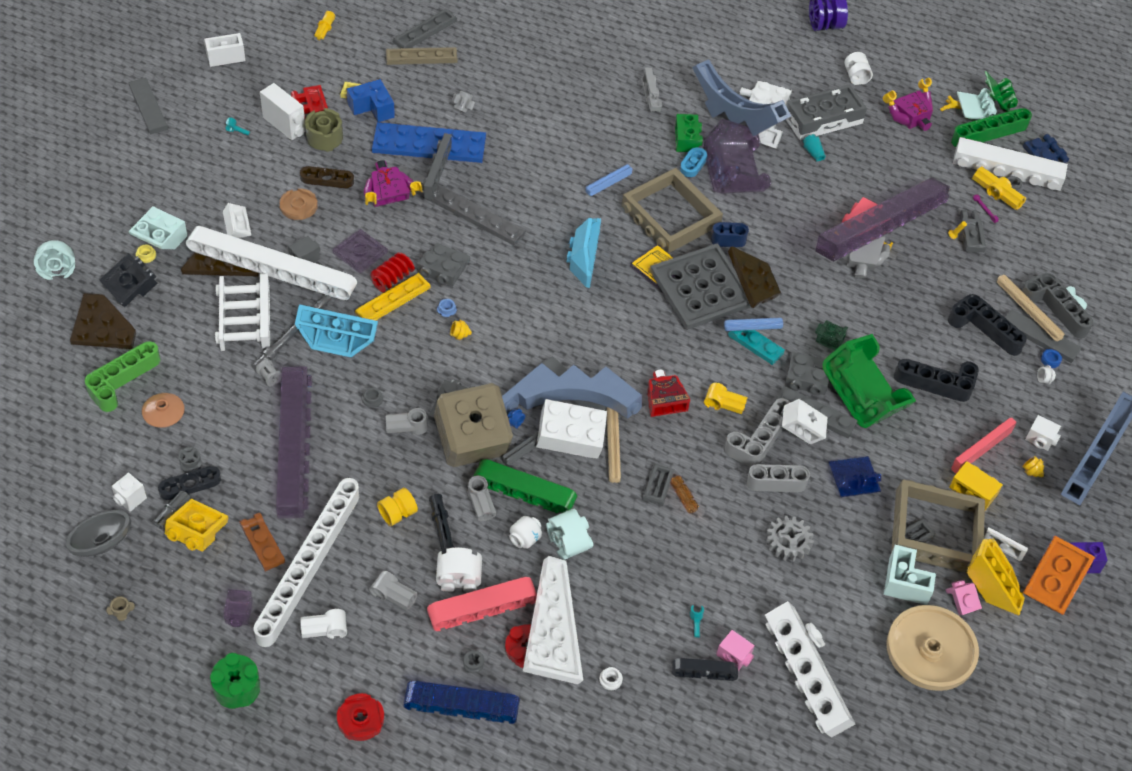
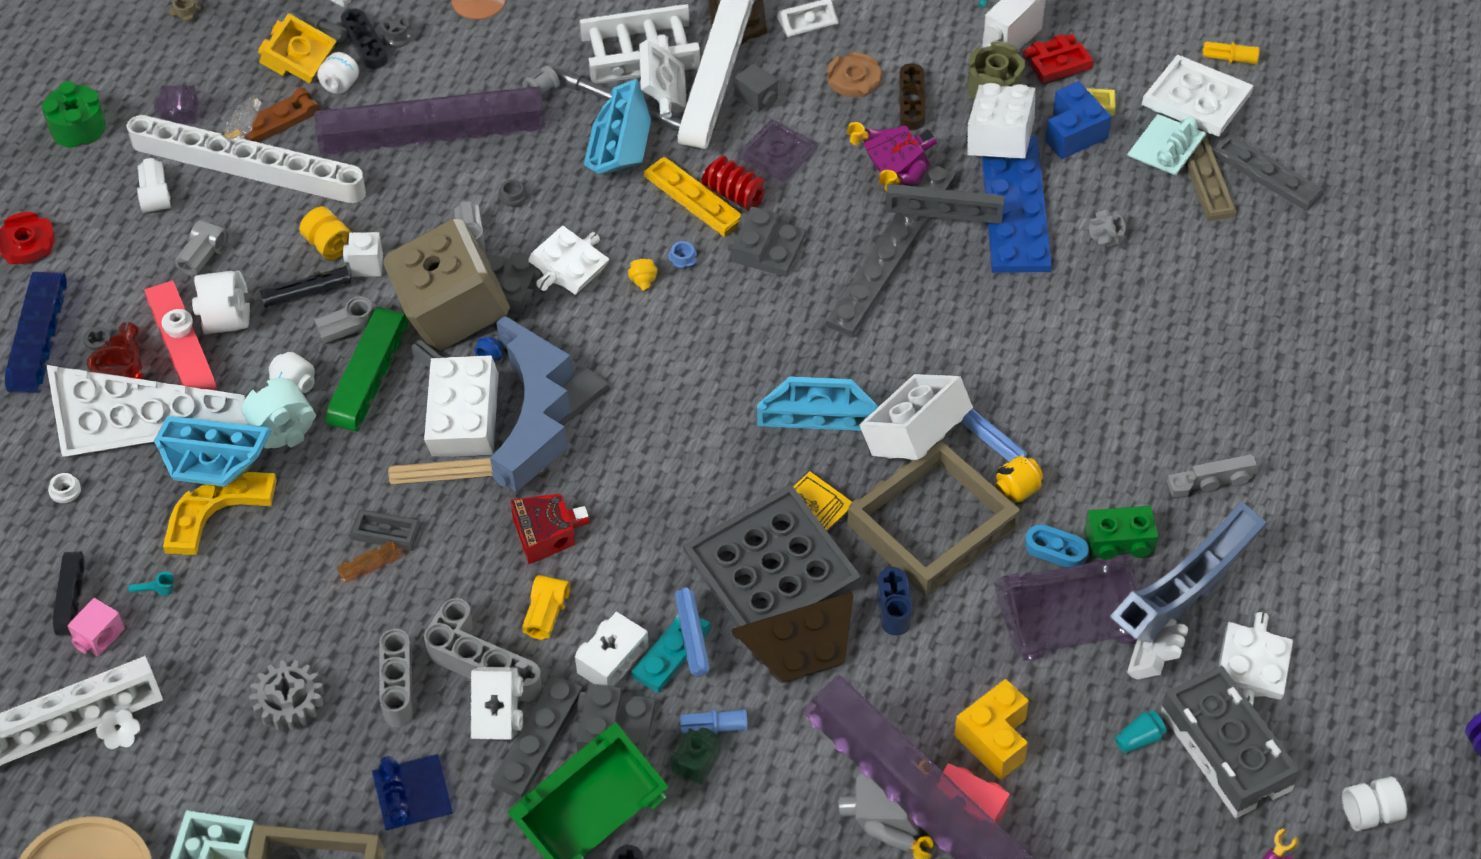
camera: 90 degrees right, 0 degrees up
(229, 497) = (338, 72): none -> white head
(278, 552) = (241, 119): none -> clear plate
(281, 296) = (662, 76): none -> white plate
(361, 44) = (1197, 92): none -> white plate
(372, 129) = (1001, 121): none -> white brick
(398, 65) = (1167, 143): none -> light aqua hinge
(421, 483) = (364, 254): none -> white brick
(447, 365) = (568, 260): none -> white plate
(480, 600) = (177, 323): none -> white plate
(492, 640) = (121, 351): none -> clear red pin
(601, 572) = (209, 449): none -> medium azure wedge
(607, 200) = (916, 416): none -> white brick
(631, 588) = (196, 507): none -> yellow plate
(648, 168) = (1019, 478): none -> yellow head
(761, 368) = (611, 651): none -> white brick
(807, 325) = (715, 721): none -> medium blue axle
(815, 205) = (990, 731): none -> yellow brick

